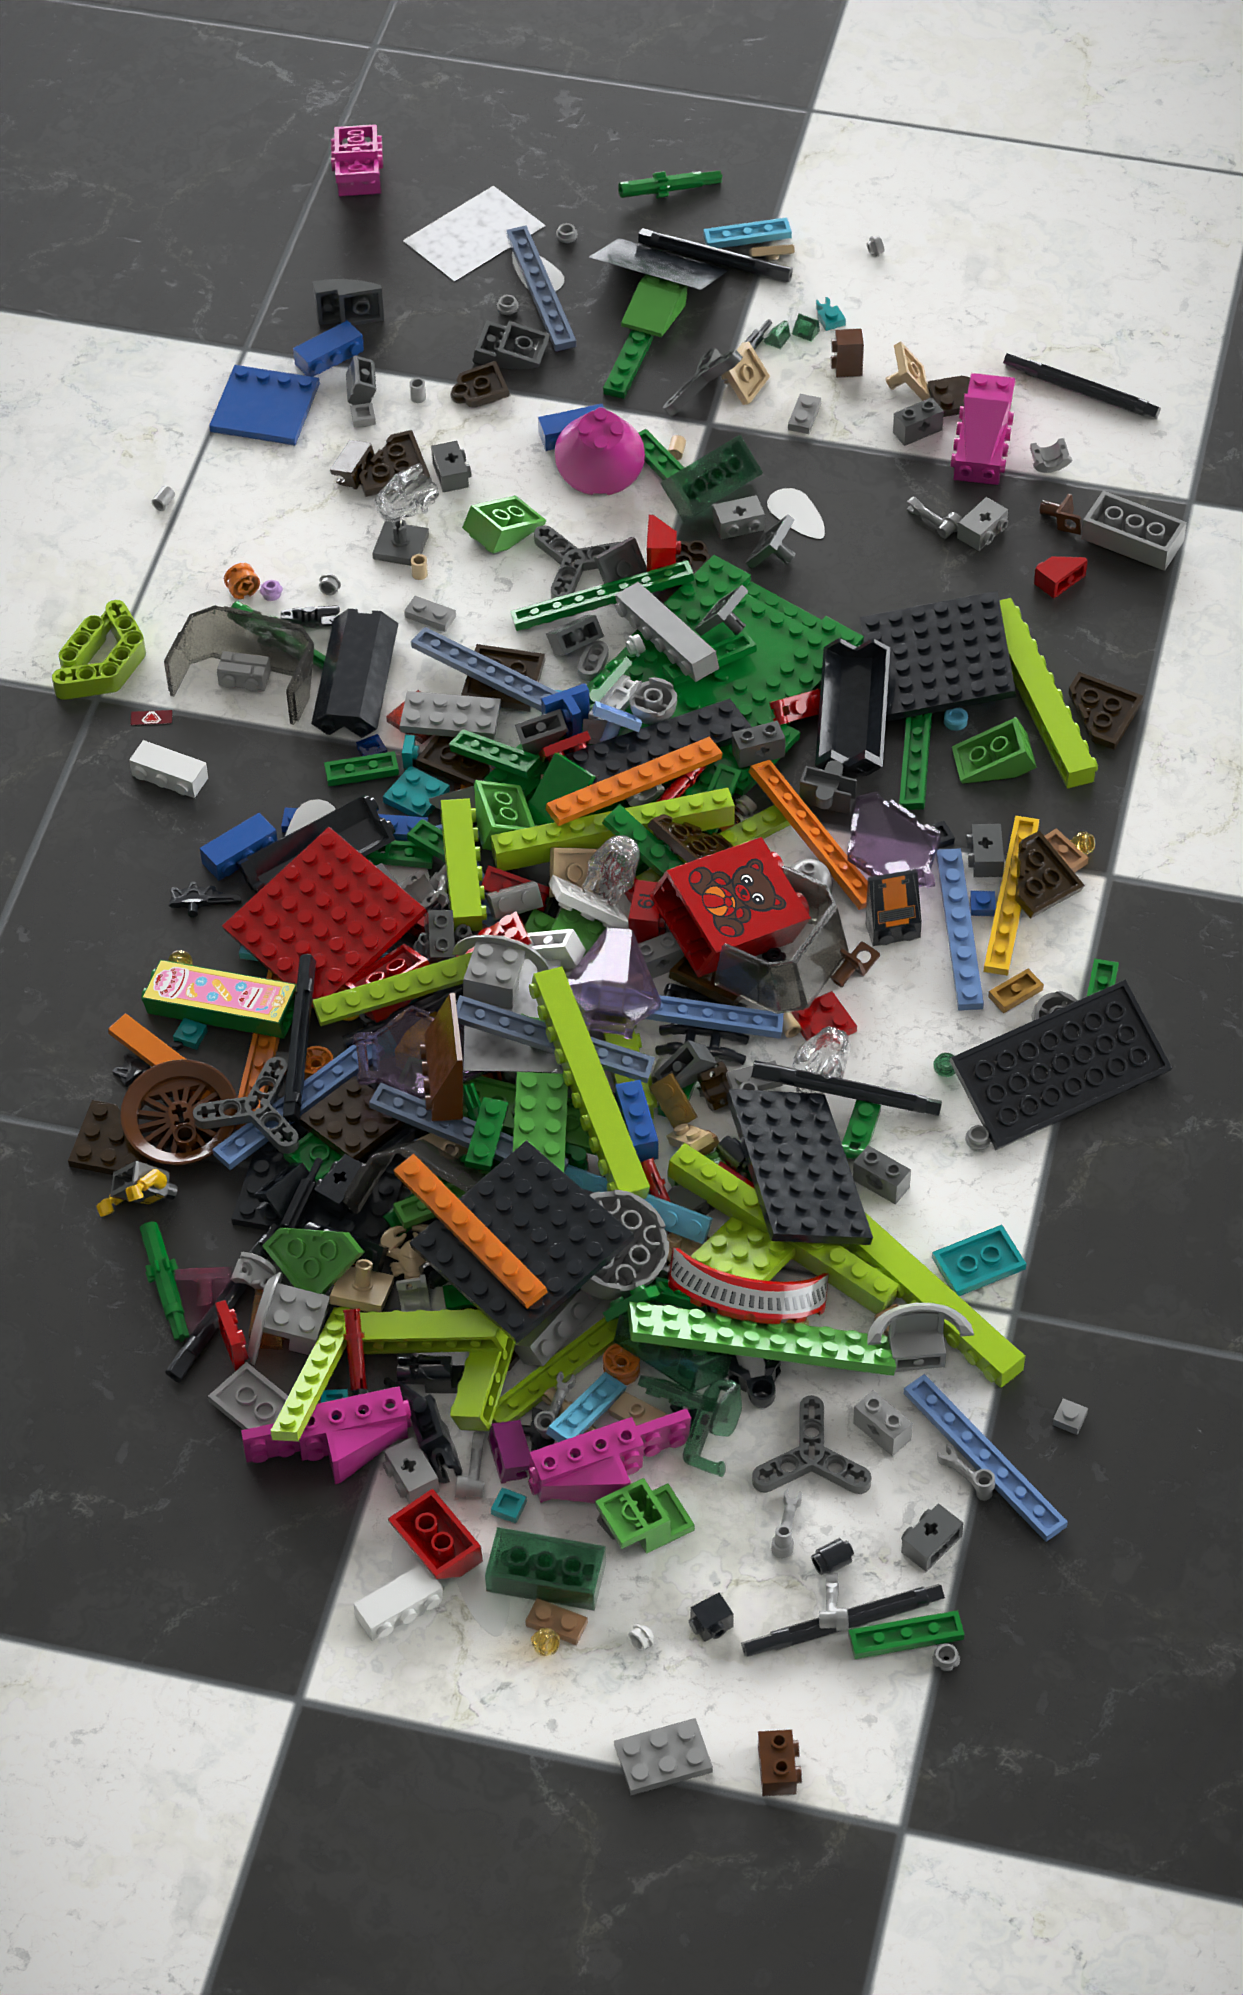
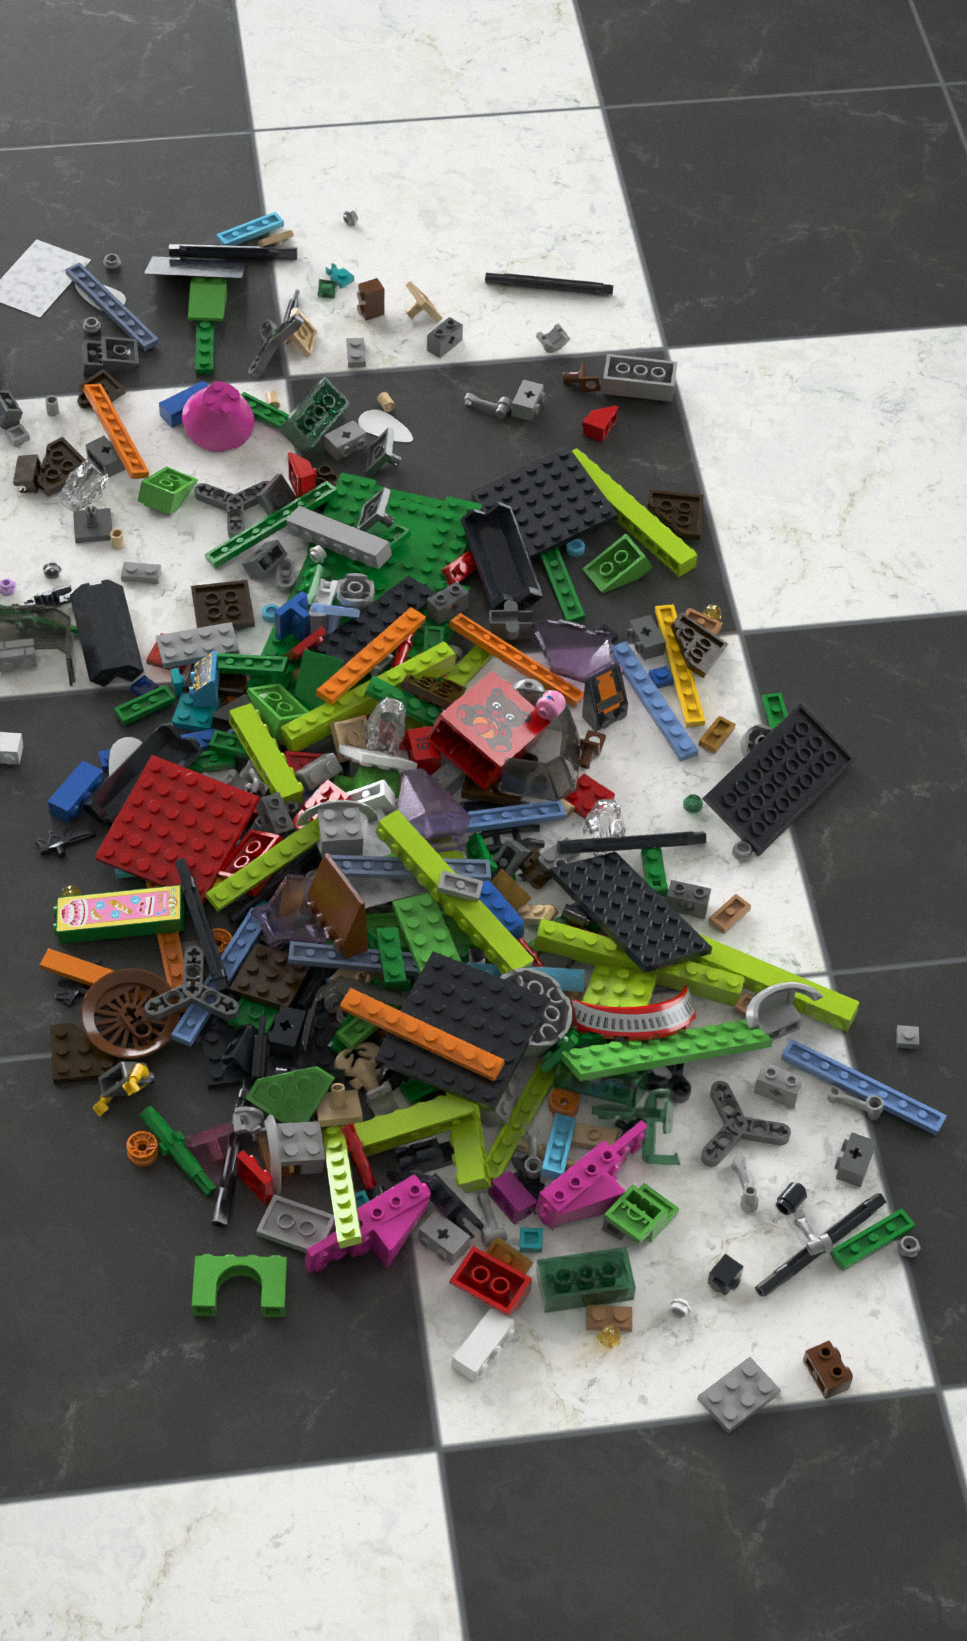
camera: 25 degrees left, 0 degrees up
(131, 1258) = (138, 1142): none -> orange wheel
(141, 1425) = (213, 1271): none -> bright green arch
(190, 1033) = (104, 949): teal plate -> none
(437, 760) = (205, 681): none -> dark azure slope
(471, 439) = (116, 431): none -> orange plate
(473, 1516) = (507, 1254): none -> pearl gold plate
(481, 668) = (209, 603): sand blue plate -> none
(541, 731) = (281, 638): dark grey slope -> none
(594, 1076) = (459, 886): none -> light grey plate
(655, 1045) = (477, 850): none -> green plate
(662, 184) = (170, 208): green piece -> none
(778, 335) = (308, 299): clear green slope -> none
(810, 483) = (385, 402): none -> tan hinge
(814, 897) = (551, 705): none -> bright pink head
(925, 1206) = (729, 913): none -> medium nougat plate
(949, 393) = (462, 309): dark brown plate -> none
(979, 1260) = (788, 941): teal plate -> none
(983, 429) = (496, 331): dark pink wedge -> none

